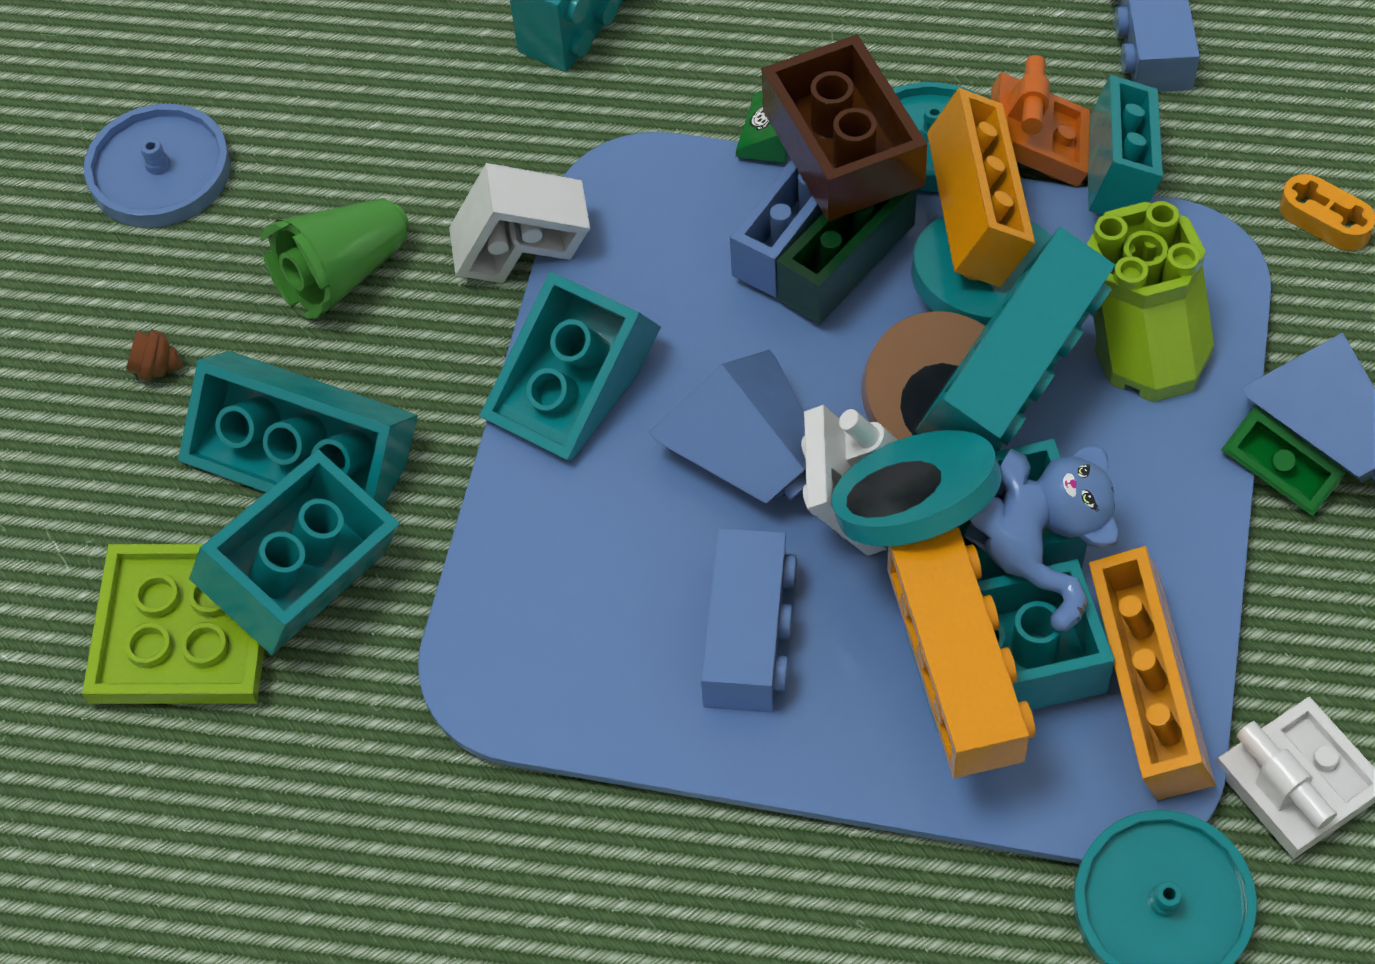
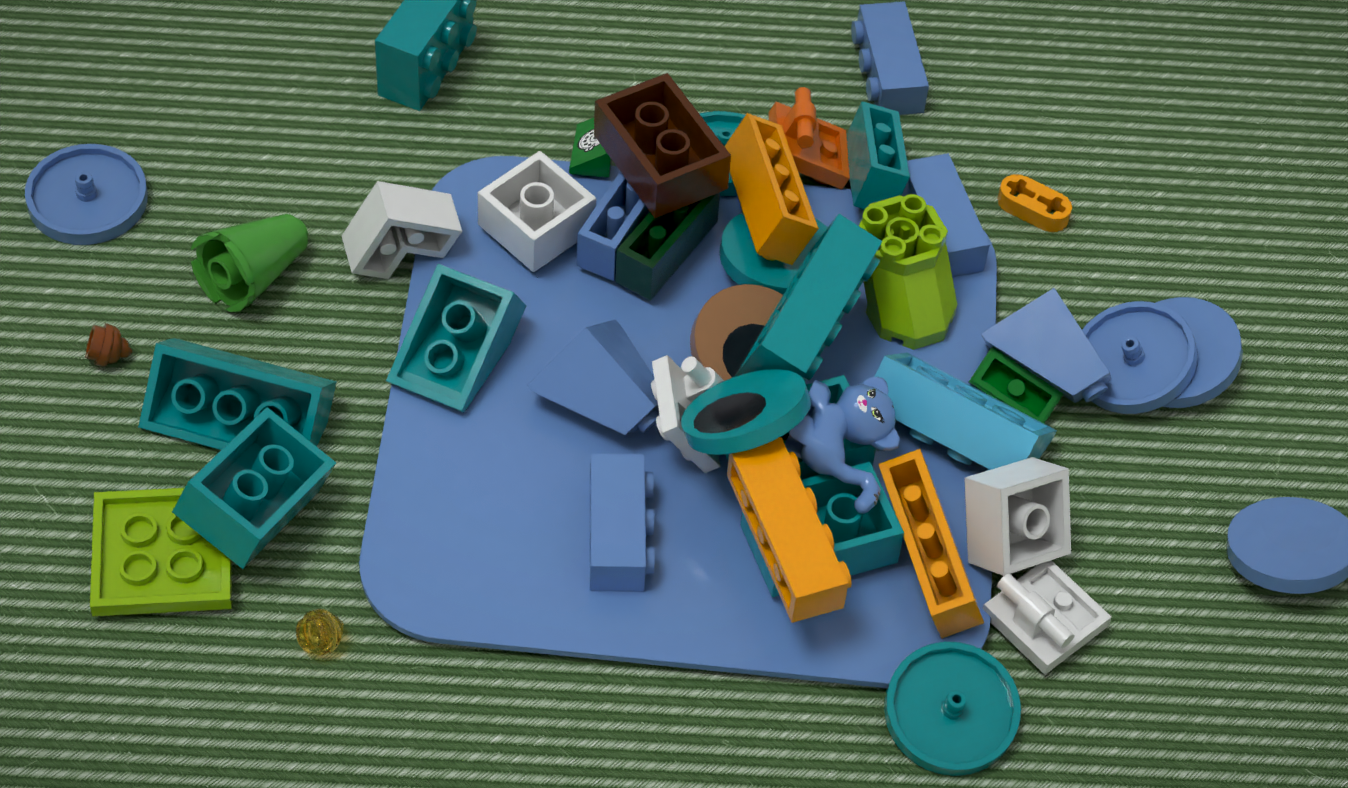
camera: 15 degrees left, 5 degrees down
(359, 742) = (319, 632): none -> clear yellow plate
(683, 204) = (535, 210): none -> white brick
(1203, 193) = (941, 187): none -> medium blue brick
(1209, 500) = (960, 415): none -> medium azure slope
(1272, 642) = (1018, 515): none -> white brick

